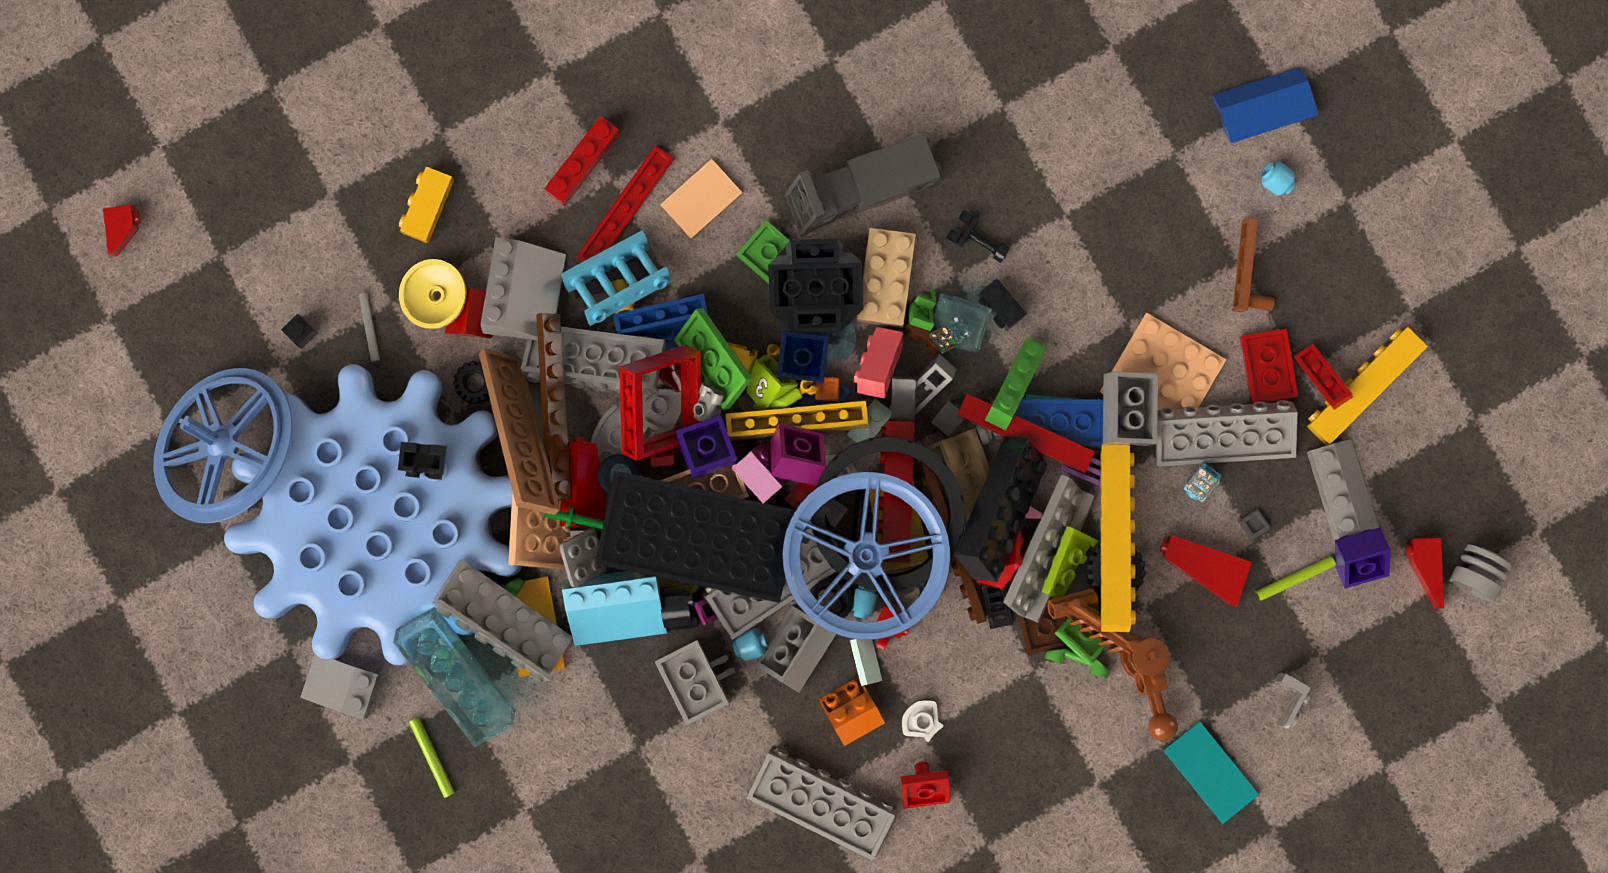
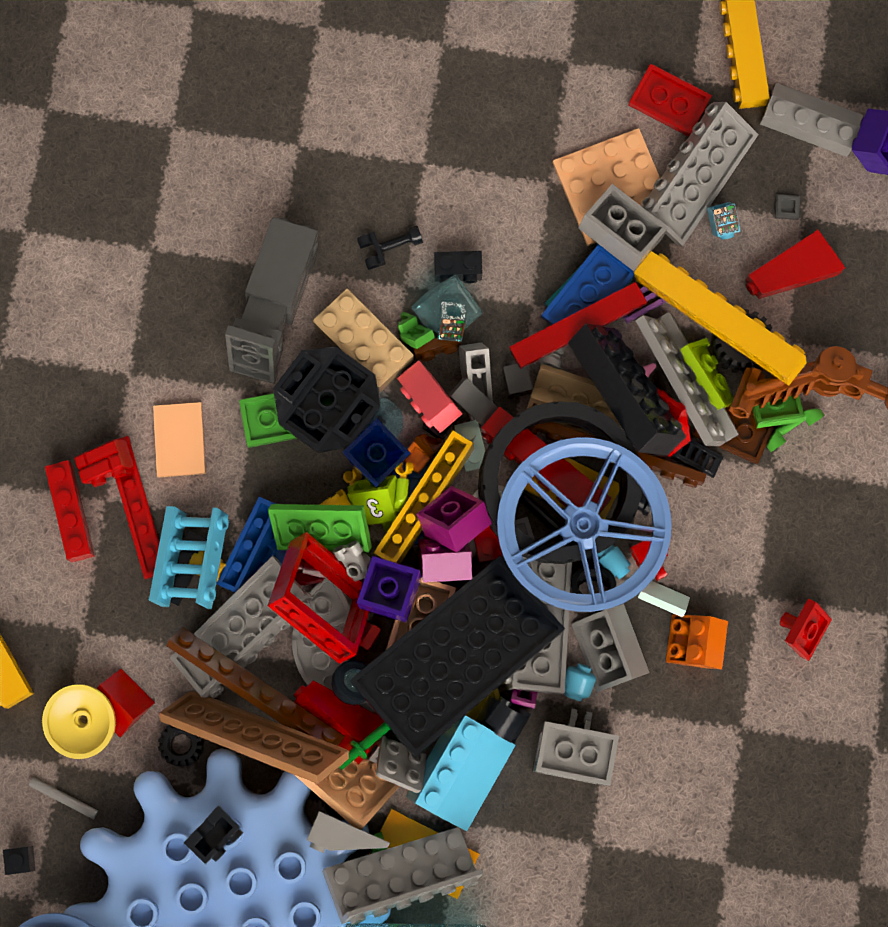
camera: 55 degrees left, 5 degrees down
(493, 549) = (337, 835): none -> light grey slope
(519, 286) = (132, 643): light grey slope -> none
(639, 157) = (104, 462): none -> red brick
(822, 803) = (755, 724): light grey bracket -> none
(843, 392) = (429, 445): none -> reddish brown tile
(921, 720) = (746, 590): white animal -> none
(1016, 383) = (532, 301): bright green brick -> none
(1242, 295) = (599, 78): dark orange piece -> none
(1296, 578) = (854, 207): lime piece -> none
(1323, 376) = (711, 63): red plate -> none

